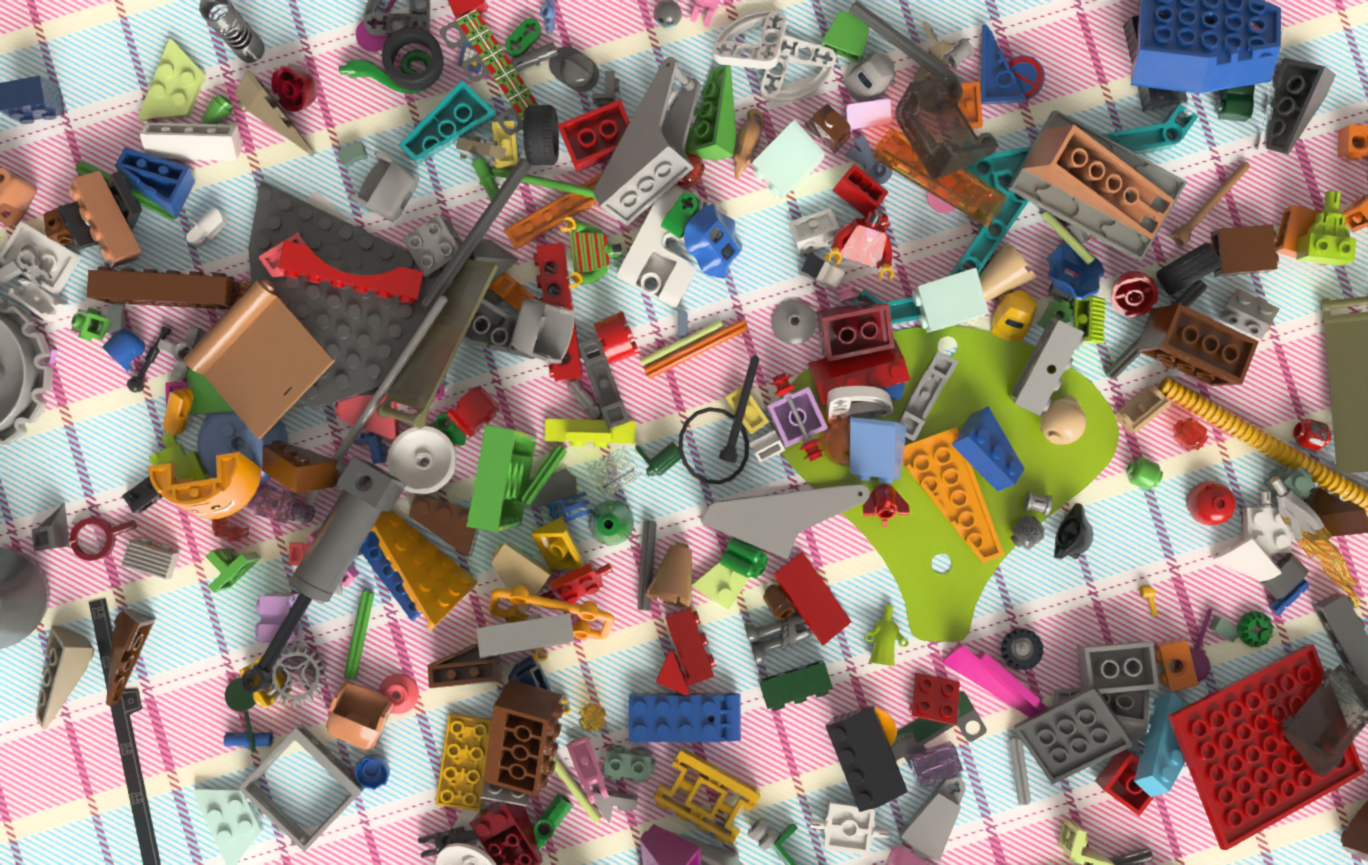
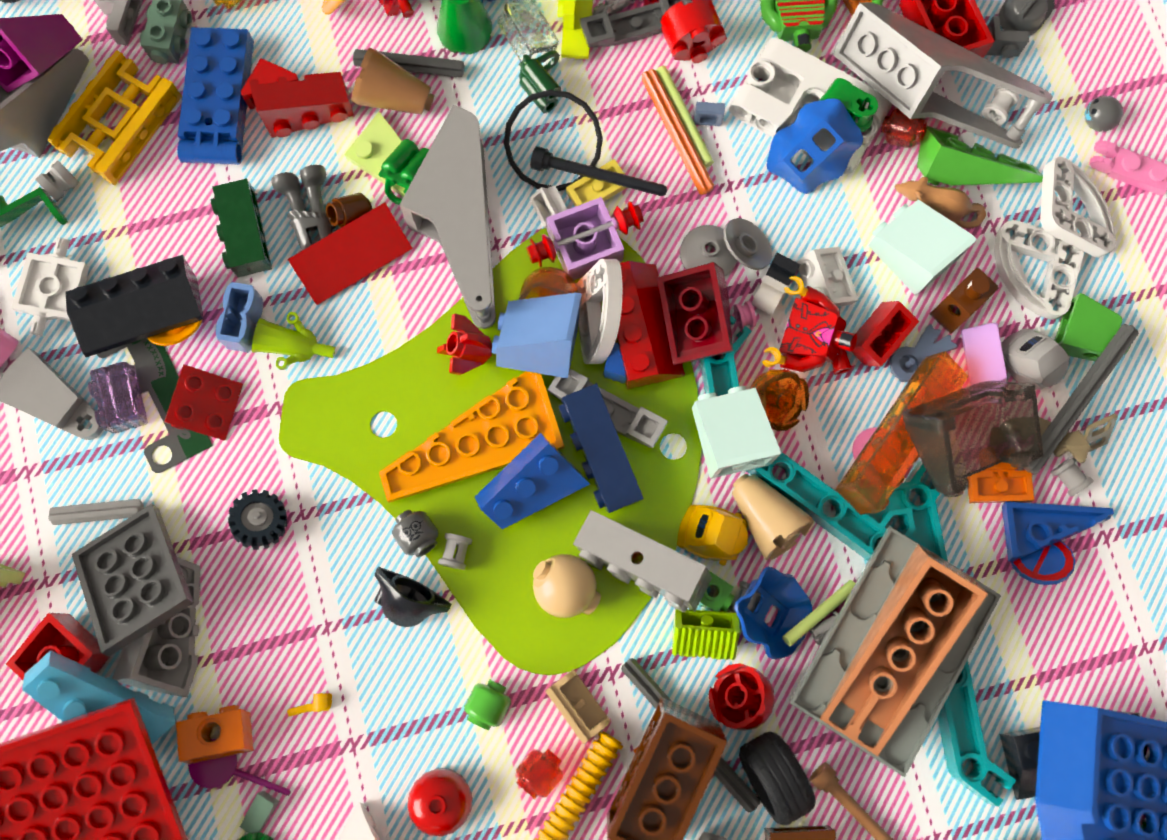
camera: 90 degrees right, 10 degrees down
(791, 292) = (747, 244): none -> light grey dish
(876, 677) = (241, 312): none -> medium blue brick
(915, 268) = (782, 397): none -> clear orange cylinder
(959, 399) = (601, 447): none -> dark blue brick
(994, 678) = (225, 484): dark pink wedge -> none
(1118, 667) = (217, 648): light grey brick -> none

